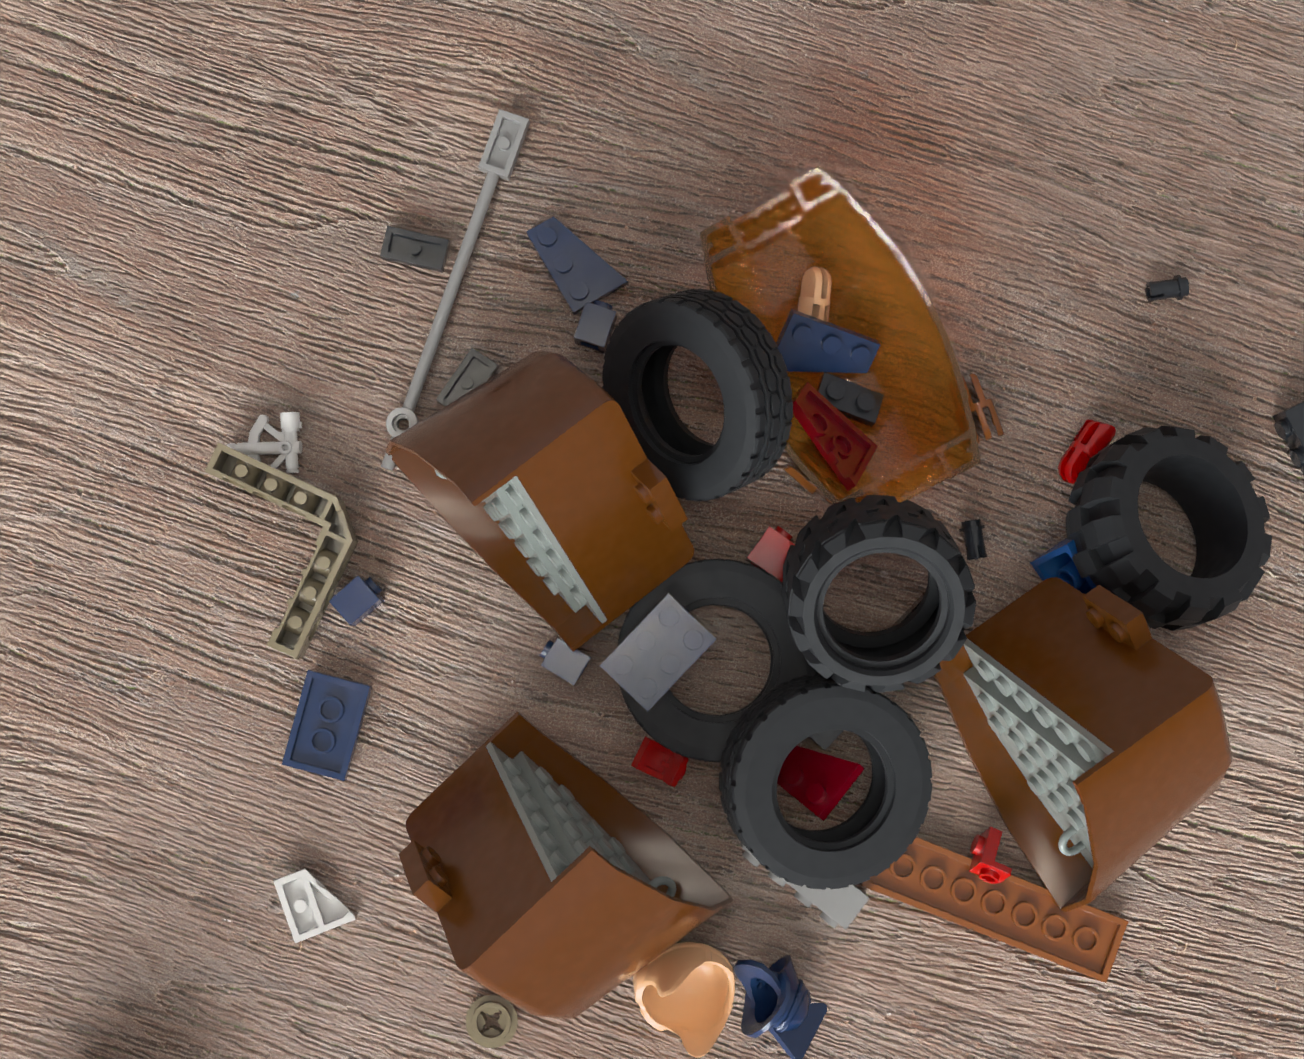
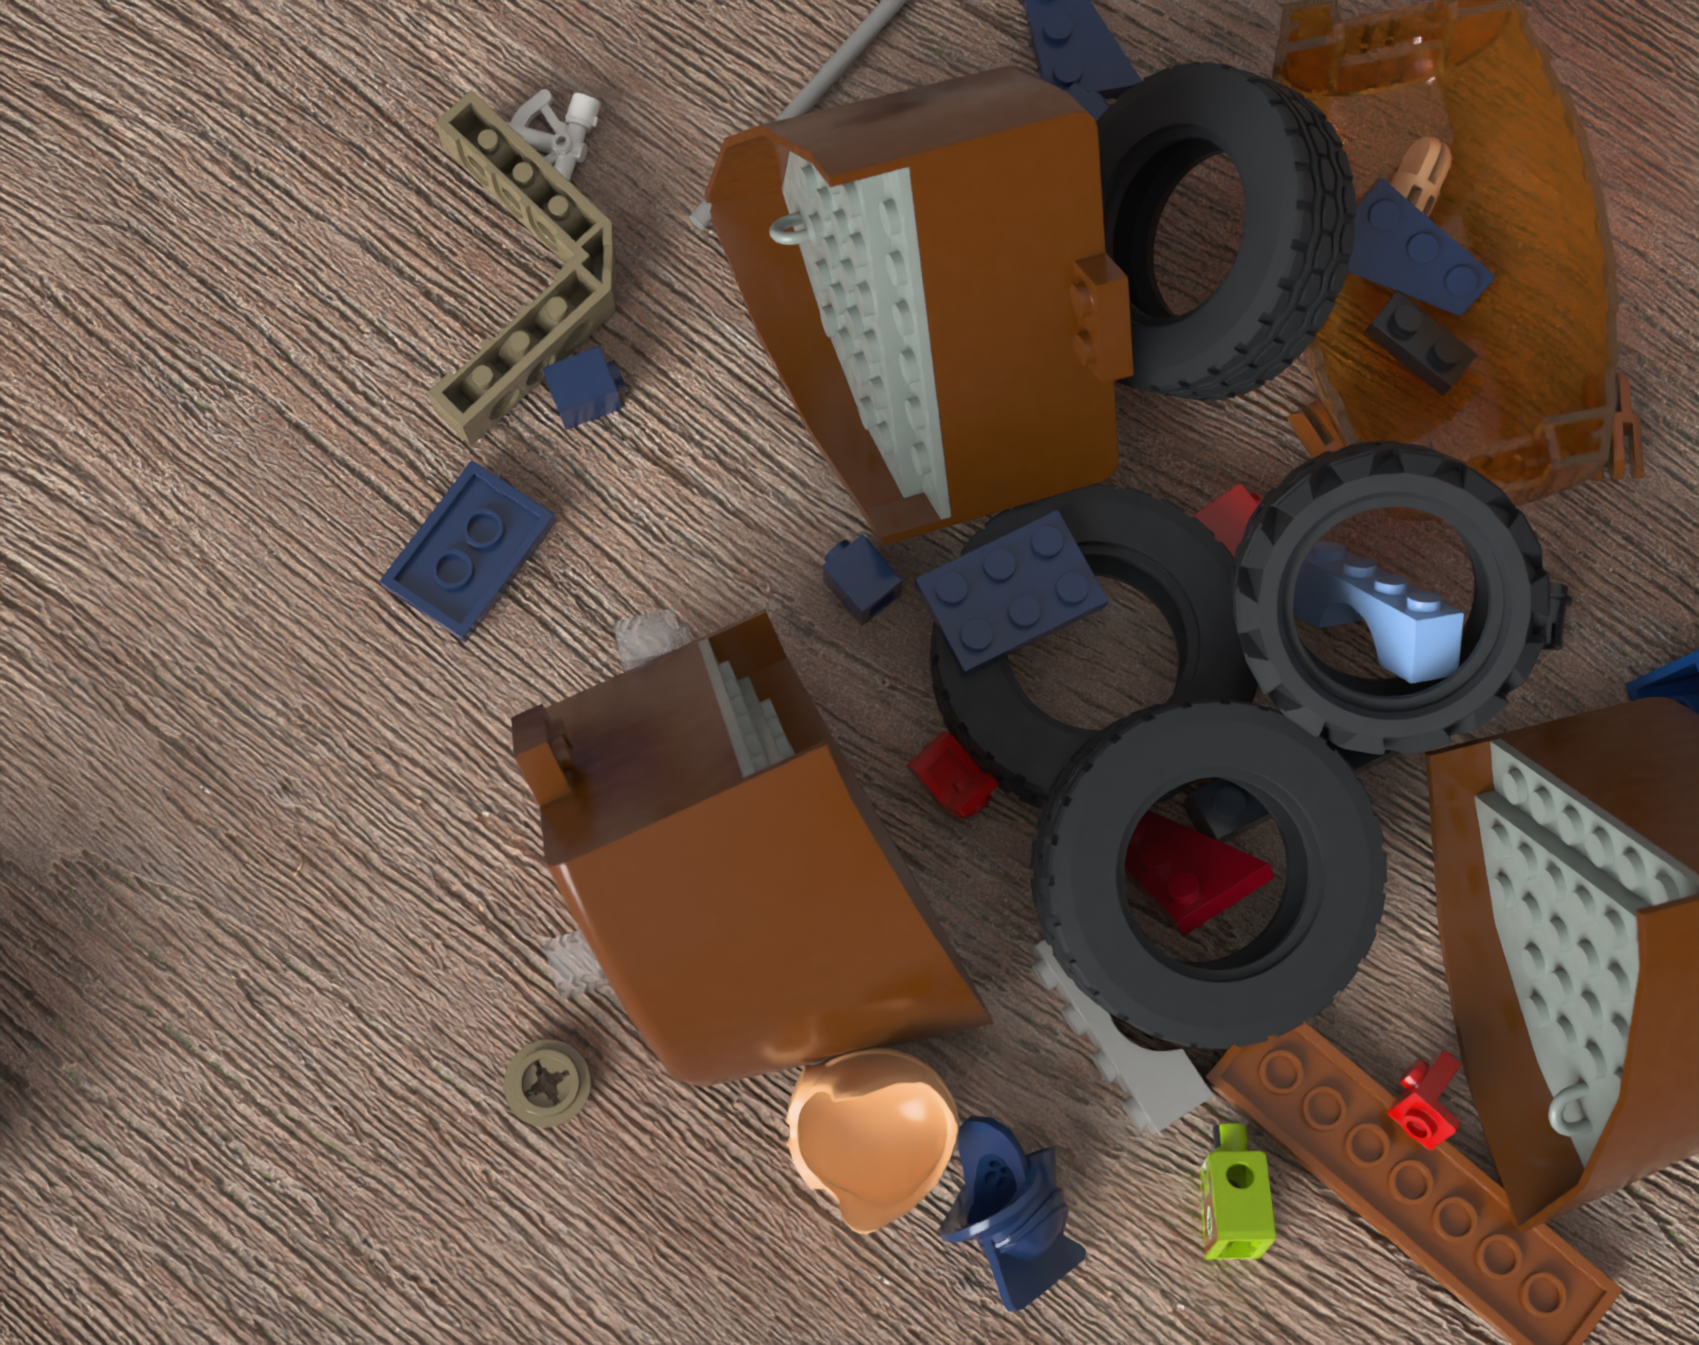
camera: 20 degrees right, 10 degrees down
(310, 905) = (337, 806): white wing -> none
(457, 744) = (649, 637): none -> clear brick
(834, 435) = (1384, 374): dark red wing -> none
(897, 603) = (1411, 628): none -> light blue arch
(907, 962) = (1235, 1219): none -> lime torso

